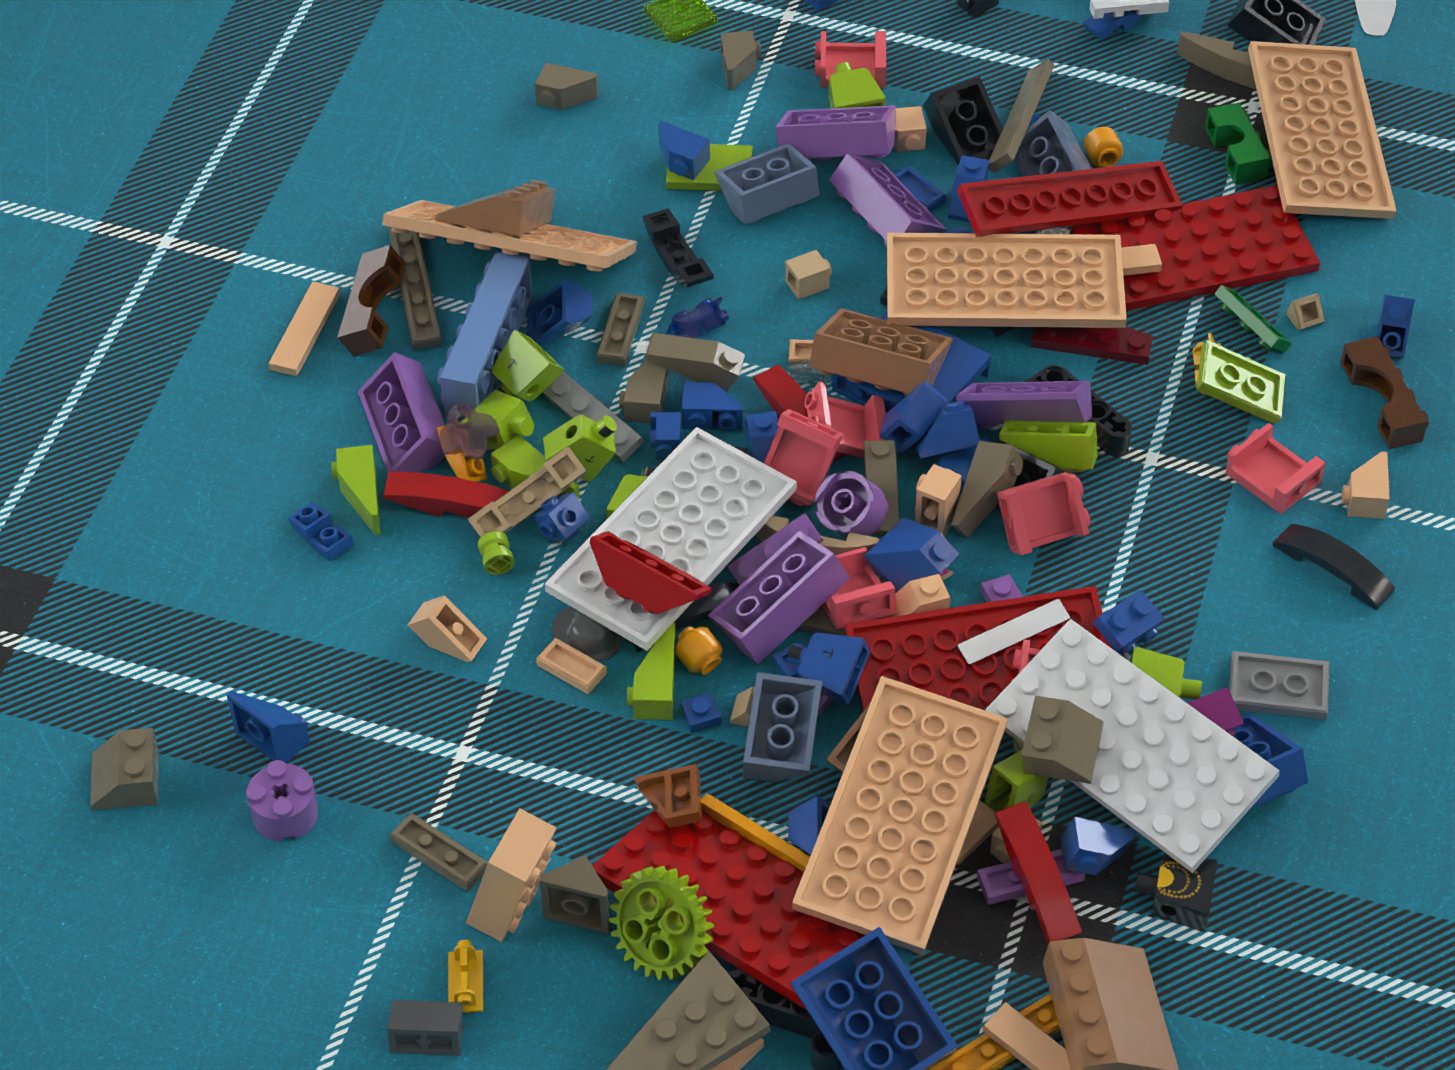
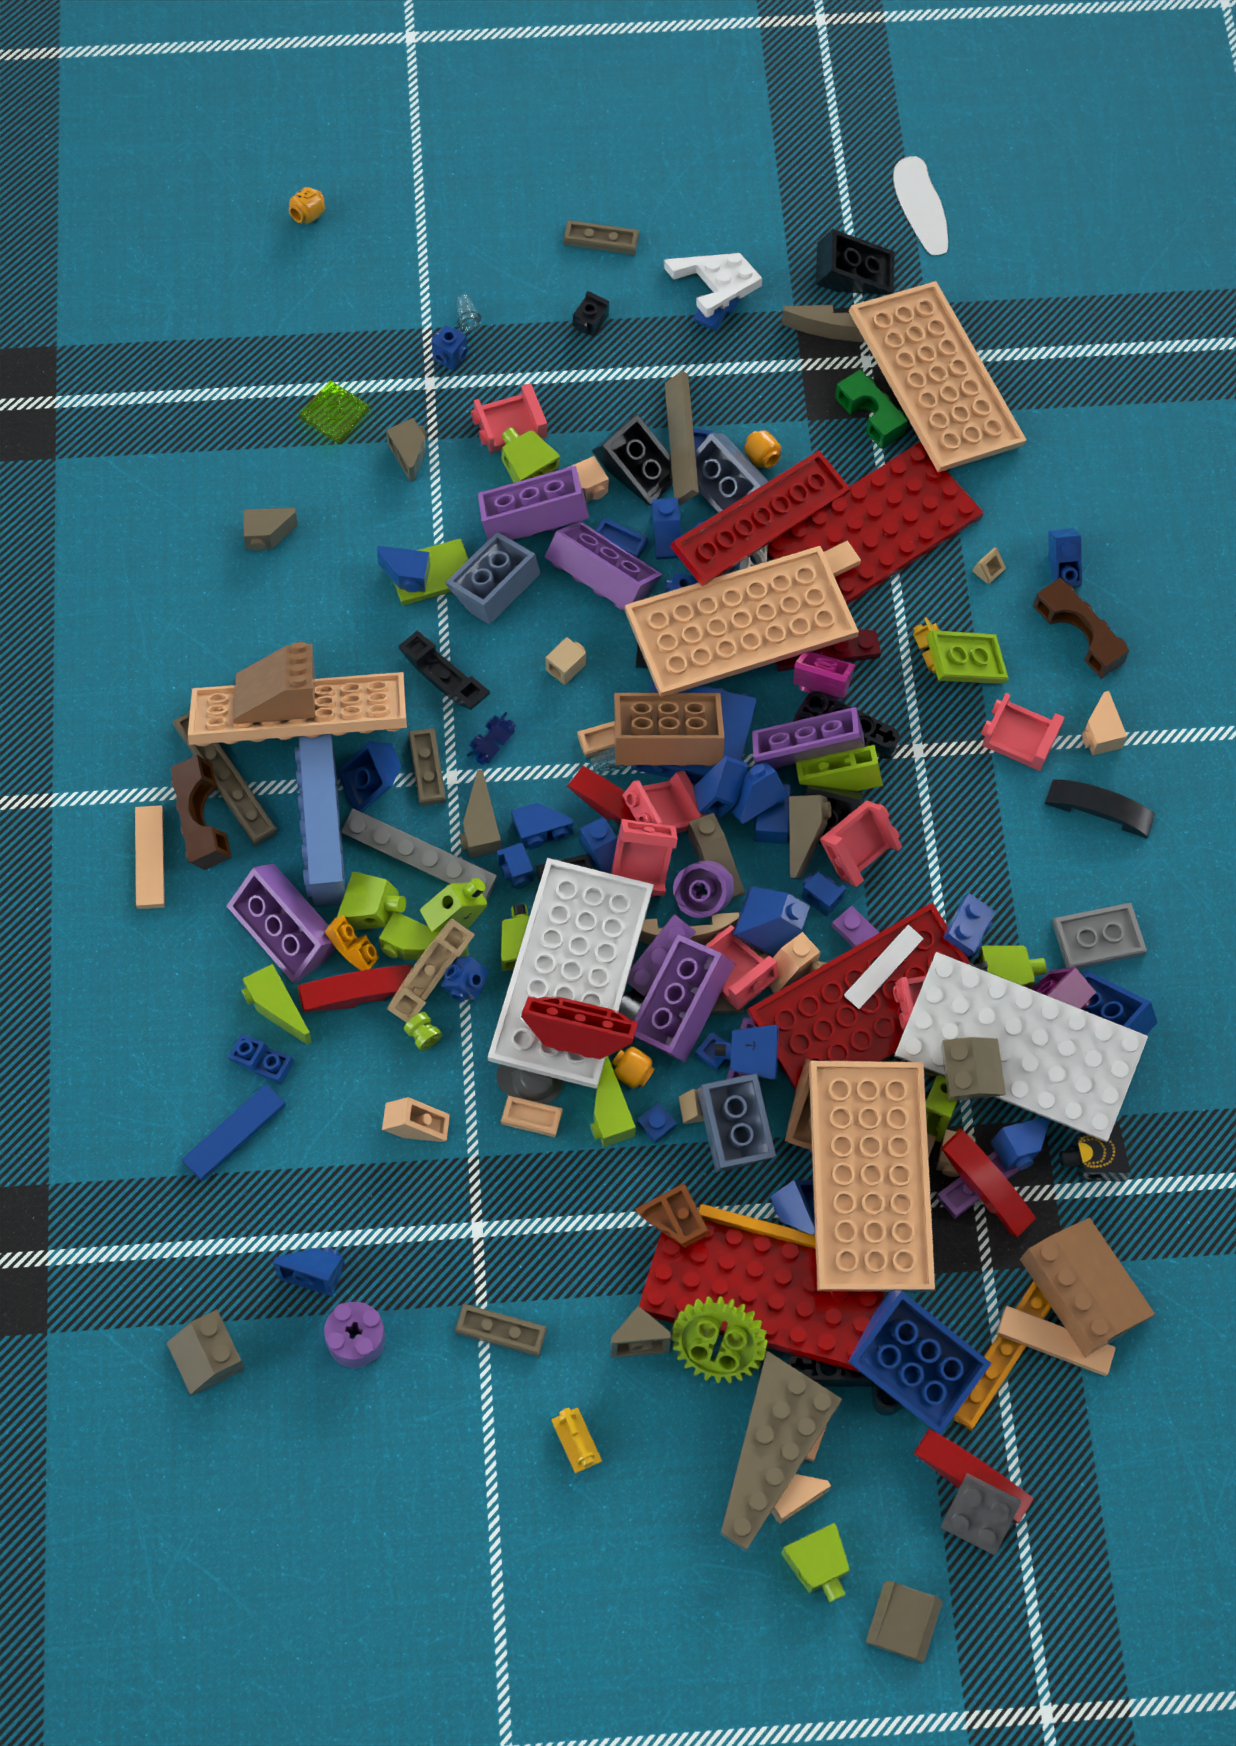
camera: 25 degrees left, 15 degrees up
(259, 587) = (233, 1132): none -> blue tile
(425, 1027) = (565, 1494): dark grey hinge -> none
(467, 436) = (357, 931): plate -> none
(512, 876) = (589, 1347): light nougat brick -> none
(525, 368) = (369, 842): lime torso -> none
(696, 358) = (513, 784): dark tan slope -> none
(937, 498) = (770, 859): light nougat brick -> none
(983, 553) = (822, 892): none -> blue brick
(1070, 351) = (823, 674): none -> dark pink slope
(1252, 319) = (950, 588): green plate -> none

